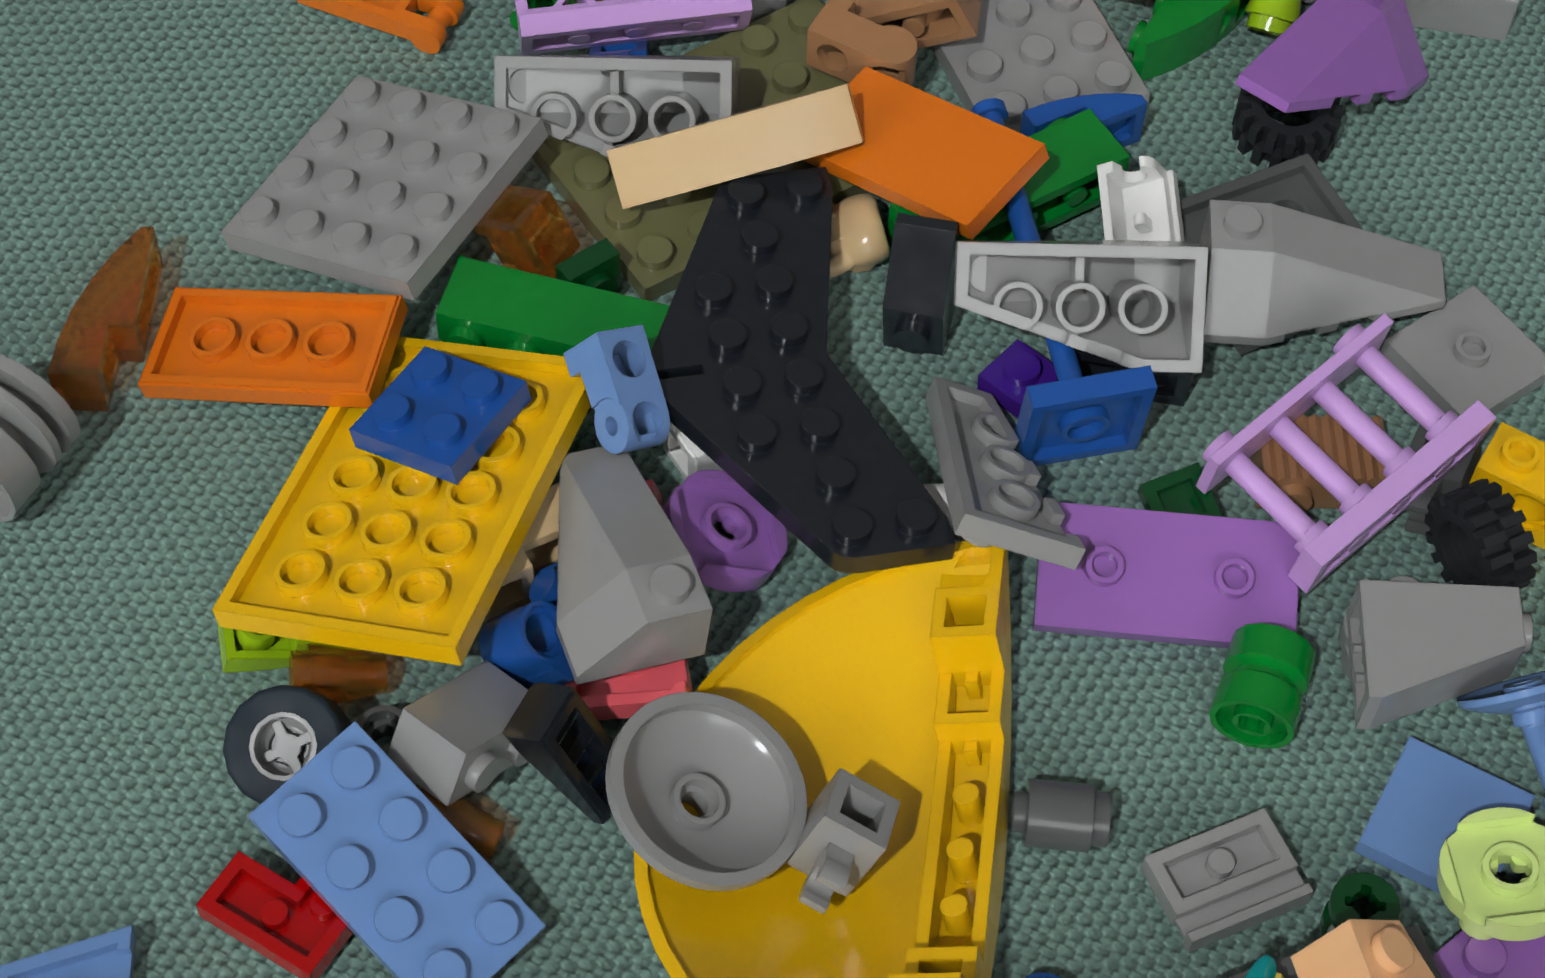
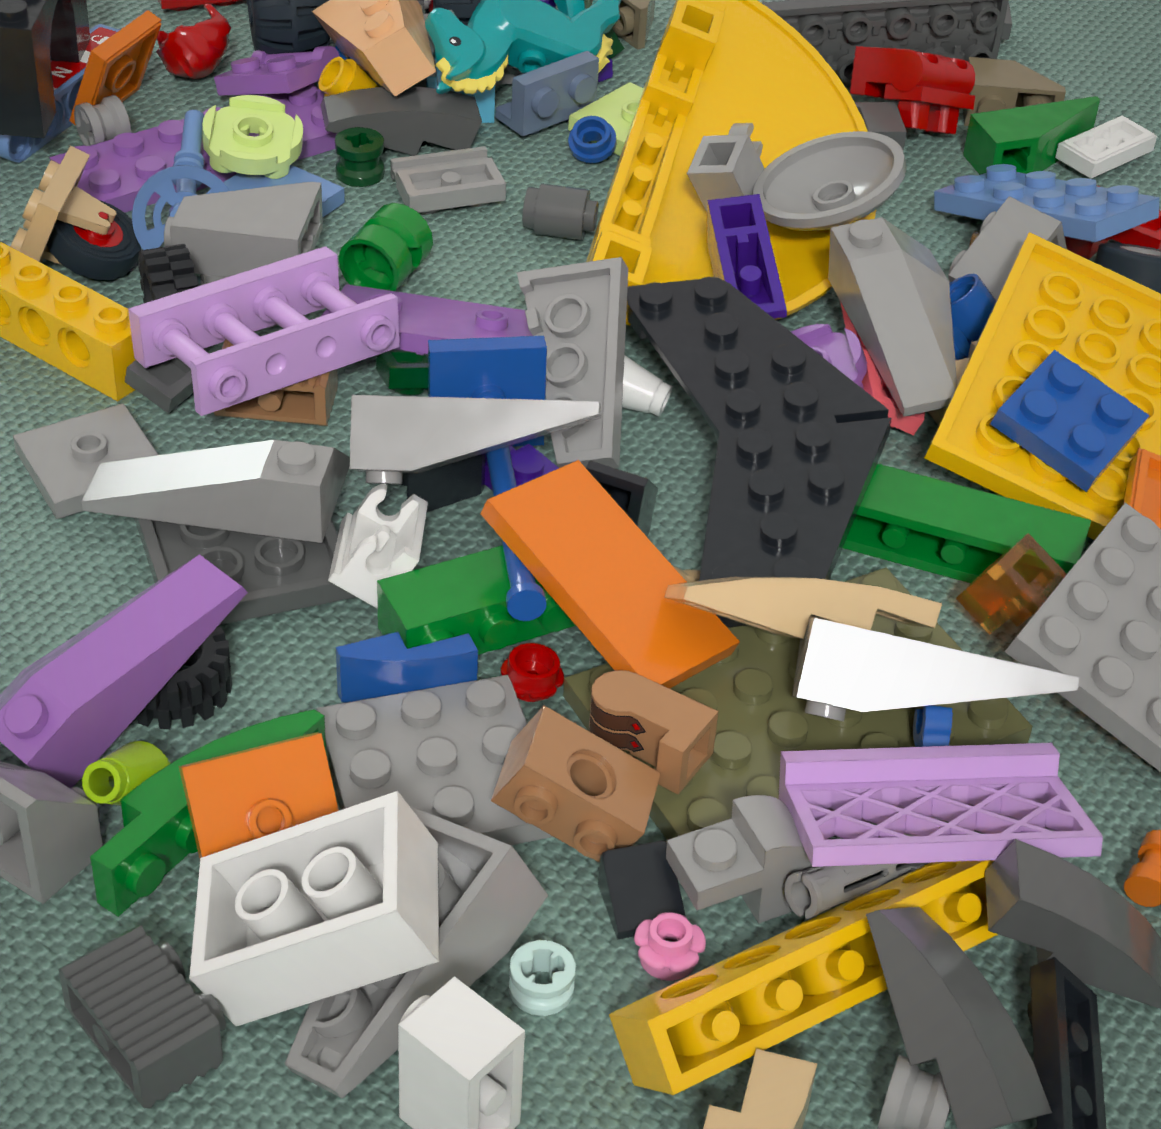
camera: 175 degrees left, 15 degrees down
(536, 734) = (949, 231): black slope -> none
(593, 267) = (944, 570): dark green plate -> none
(622, 388) = (918, 402): medium blue leg -> none
(811, 665) = (743, 251): none -> dark purple slope

